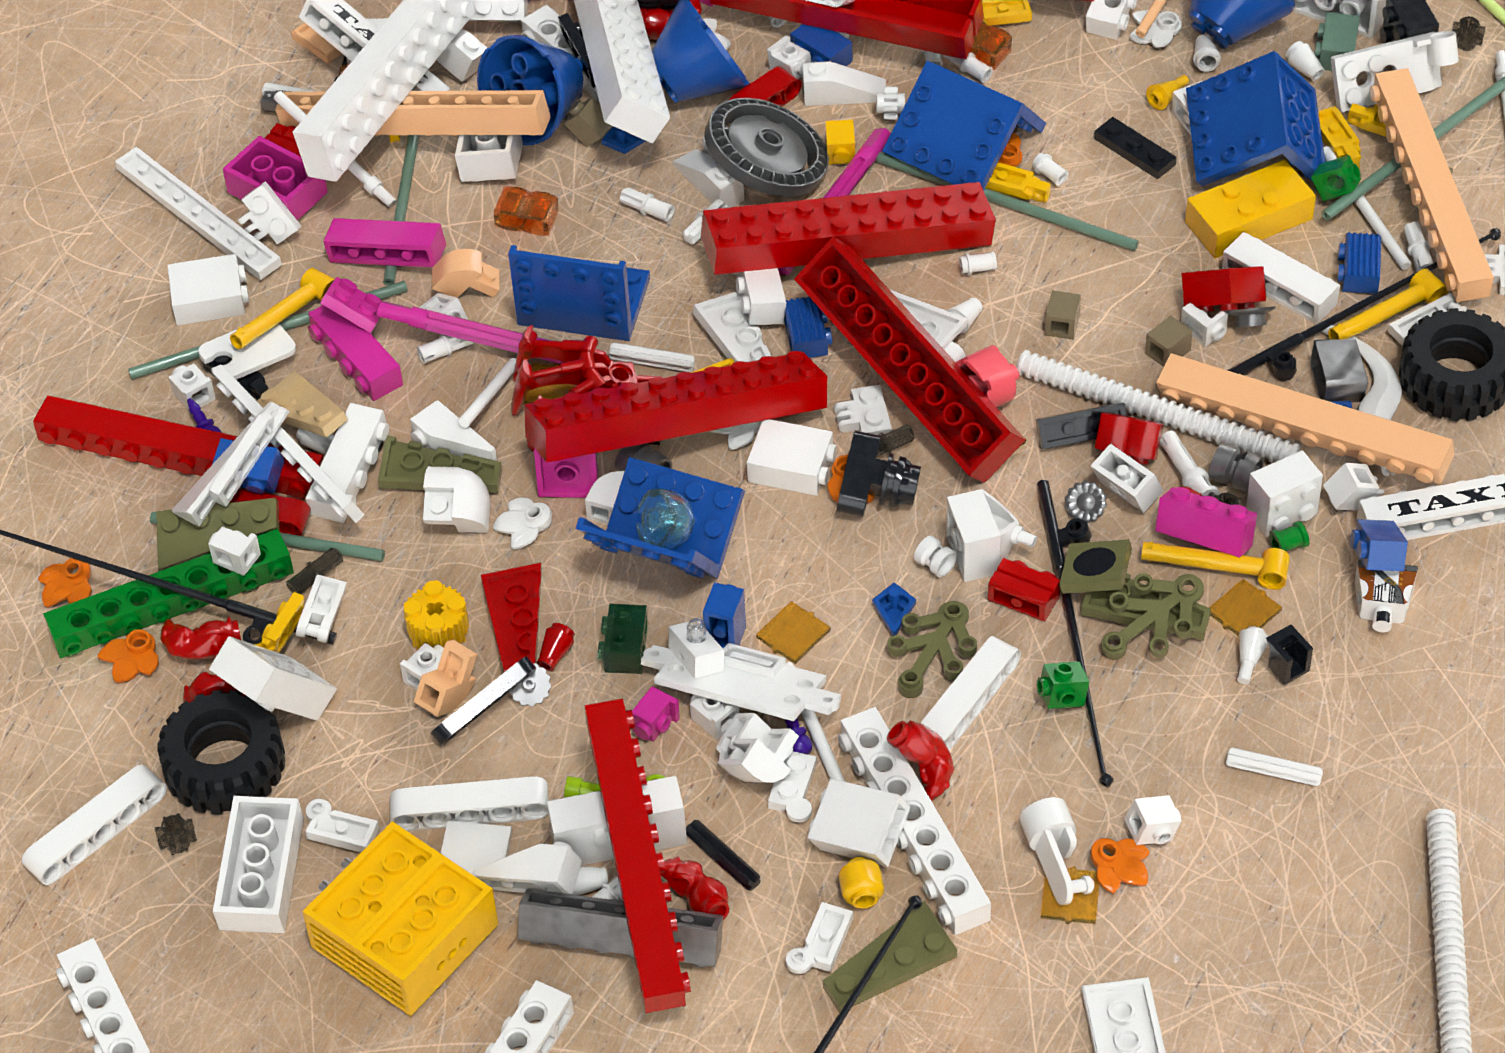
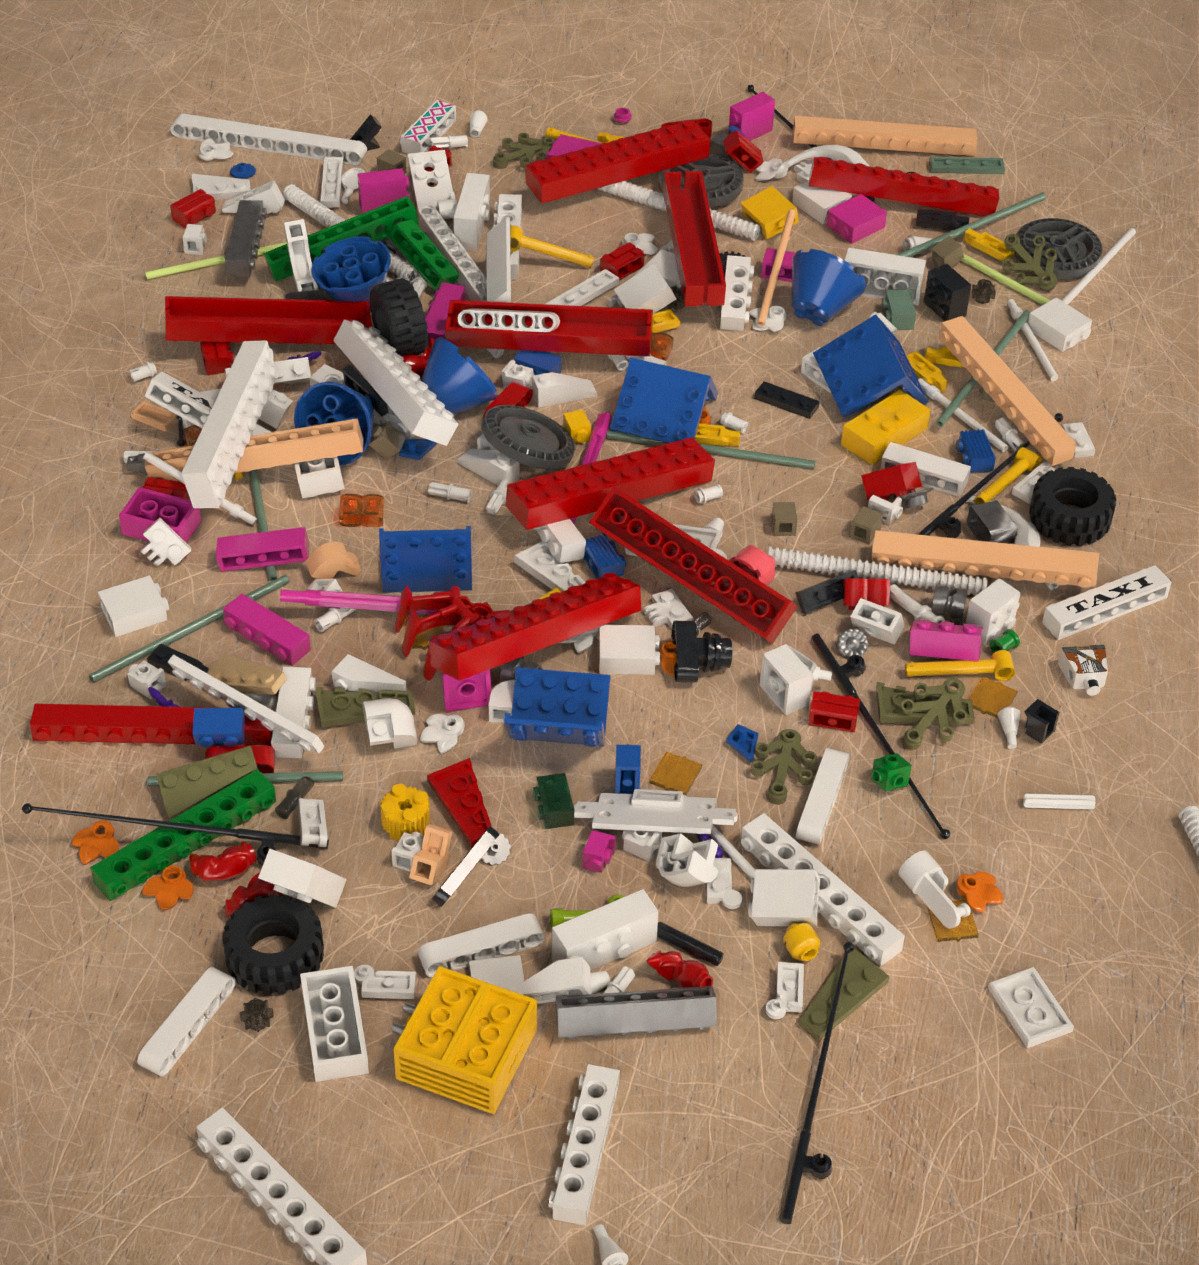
camera: 20 degrees left, 5 degrees down
(198, 213) = (104, 551): white plate -> none
(232, 467) = (209, 729): white wedge -> none
(234, 550) = (231, 790): white brick -> none
(260, 353) = (184, 640): white piece -> none
(286, 621) = (291, 831): yellow hinge -> none
(312, 285) = (216, 589): yellow piece -> none
(352, 303) = (262, 598): dark pink plate -> none
(487, 394) = (383, 644): white bar -> none
(555, 645) = (503, 814): red cone -> none
(635, 856) = (639, 954): red brick -> none
(651, 357) = (498, 597): white axle -> none
(665, 518) = (560, 704): clear light blue cylinder -> none
(696, 648) = (615, 796): white piece -> none
(890, 102) = (603, 395): white gear -> none
(927, 749) = (811, 833): red animal -> none
(937, 557) = (761, 700): white wheel -> none
(1095, 566) = (881, 685): olive tile -> none
(1153, 820) = (993, 854): white brick -> none
(1161, 94) = (791, 361): yellow cone -> none
(1206, 54) = (811, 330): white cone -> none
(1329, 185) = (938, 404): green brick -> none
(1350, 485) = (1035, 599): white brick -> none
(1379, 545) = (1074, 634): blue brick -> none
(1419, 54) = (963, 305): white hinge -> none

